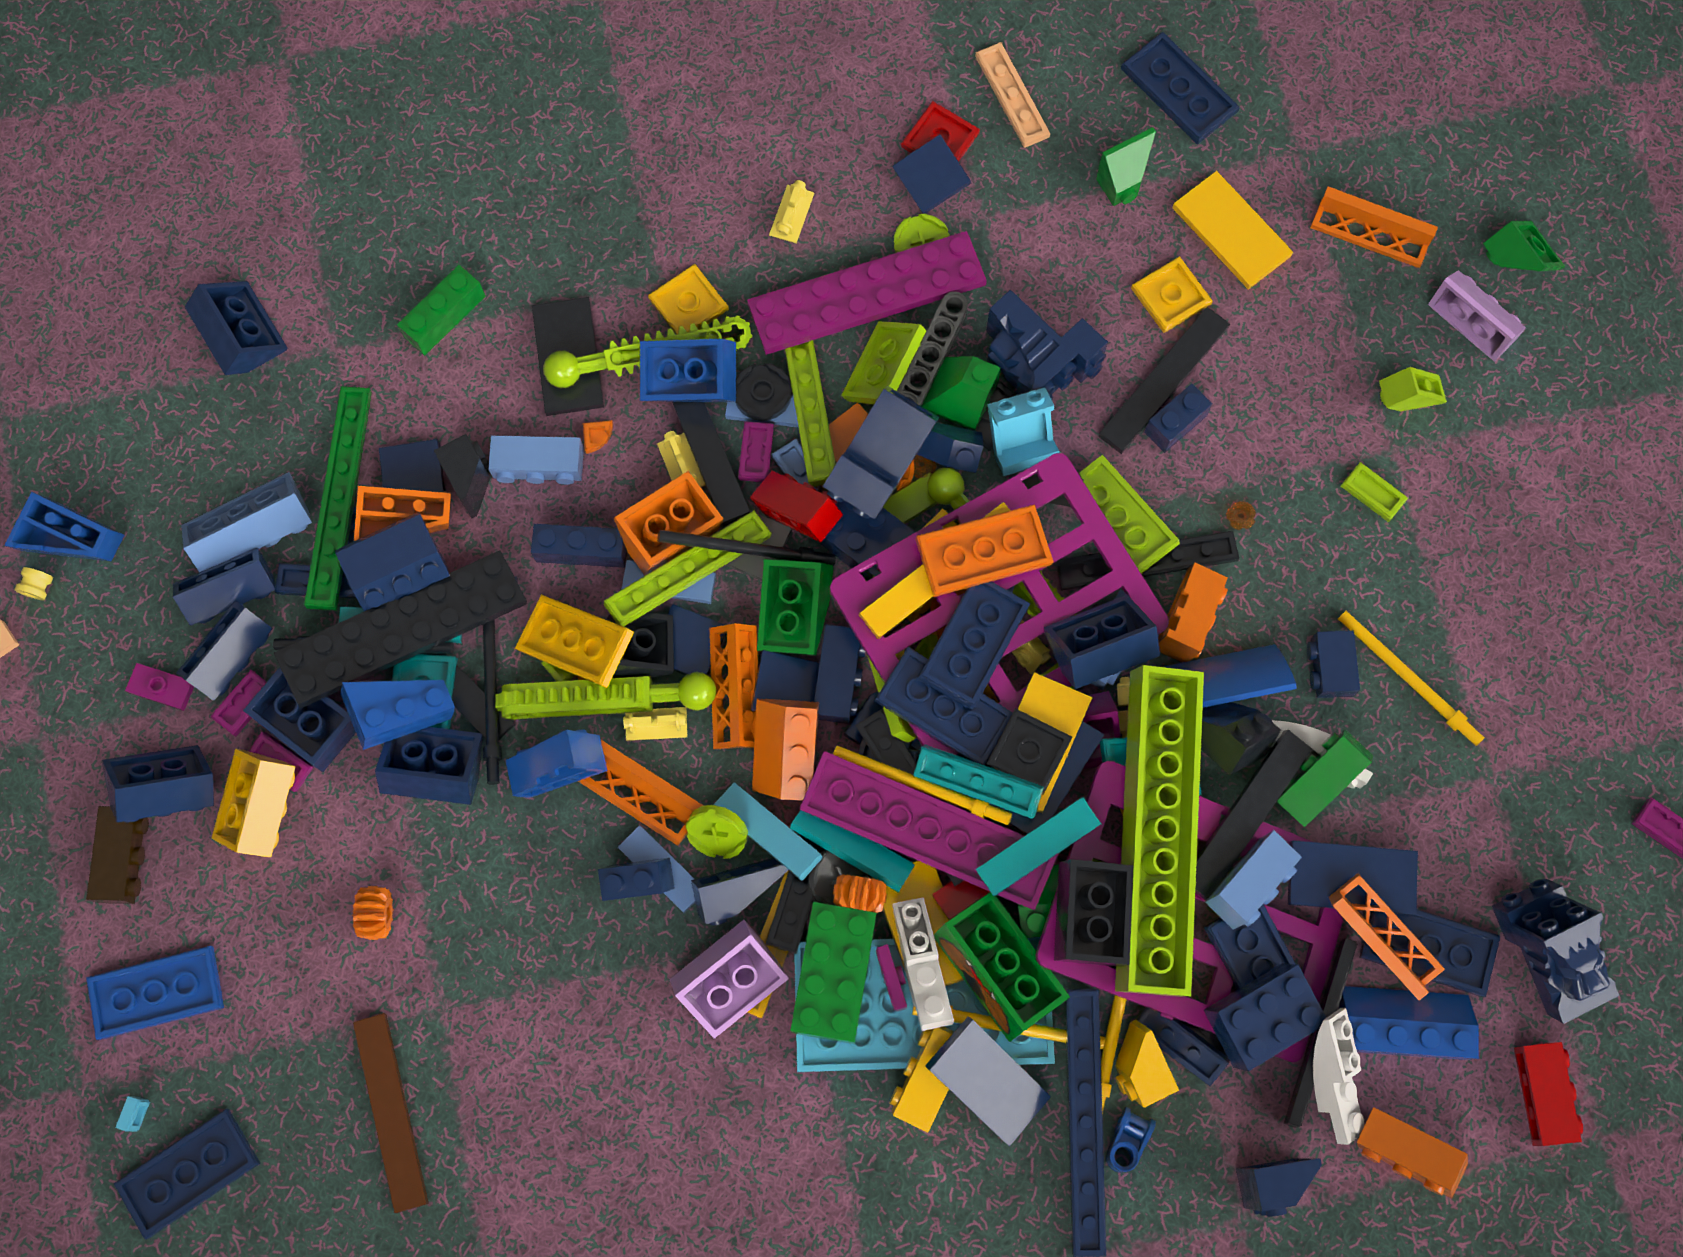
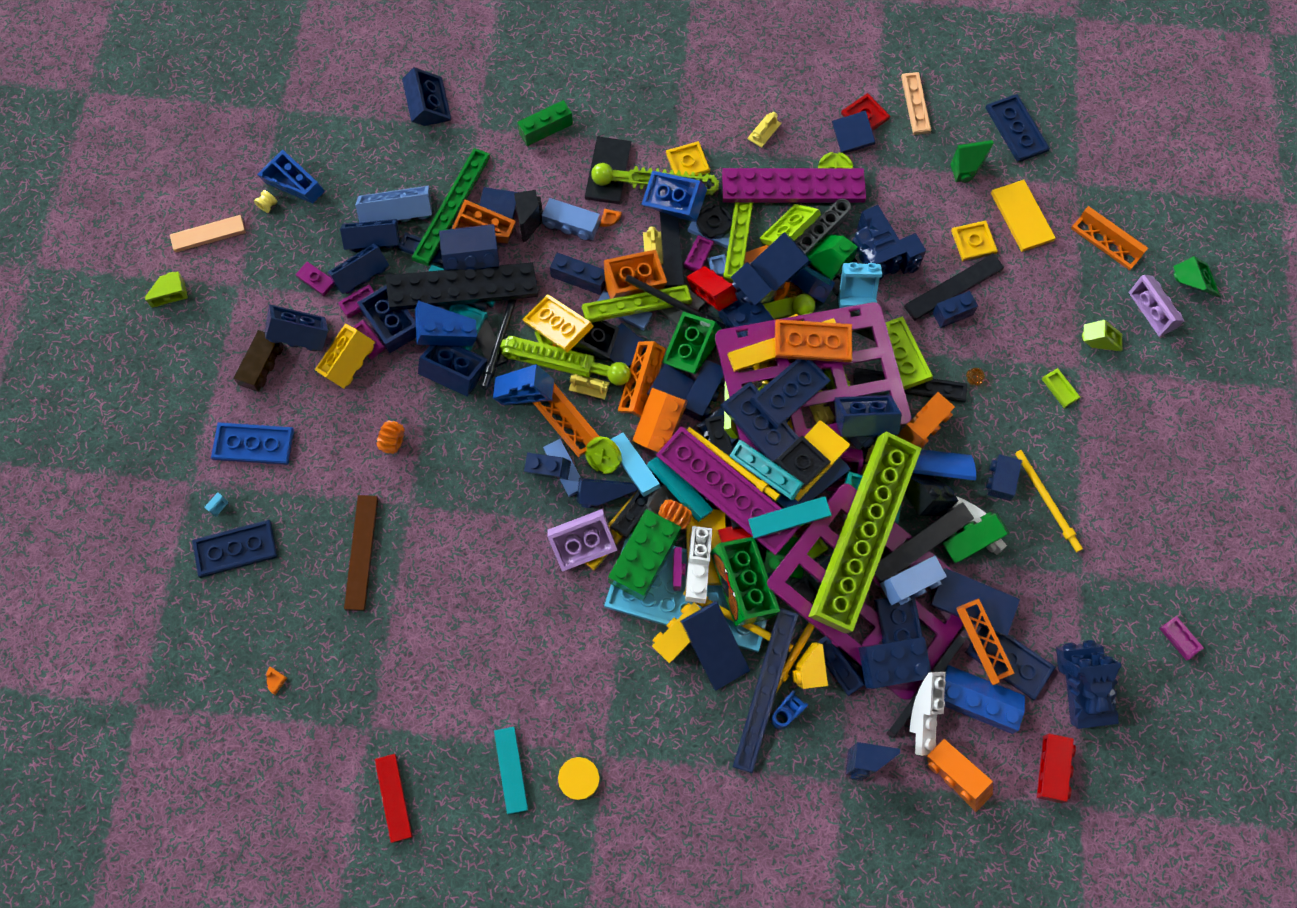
camera: 15 degrees right, 5 degrees down
(1093, 913) = (810, 564): black brick -> none

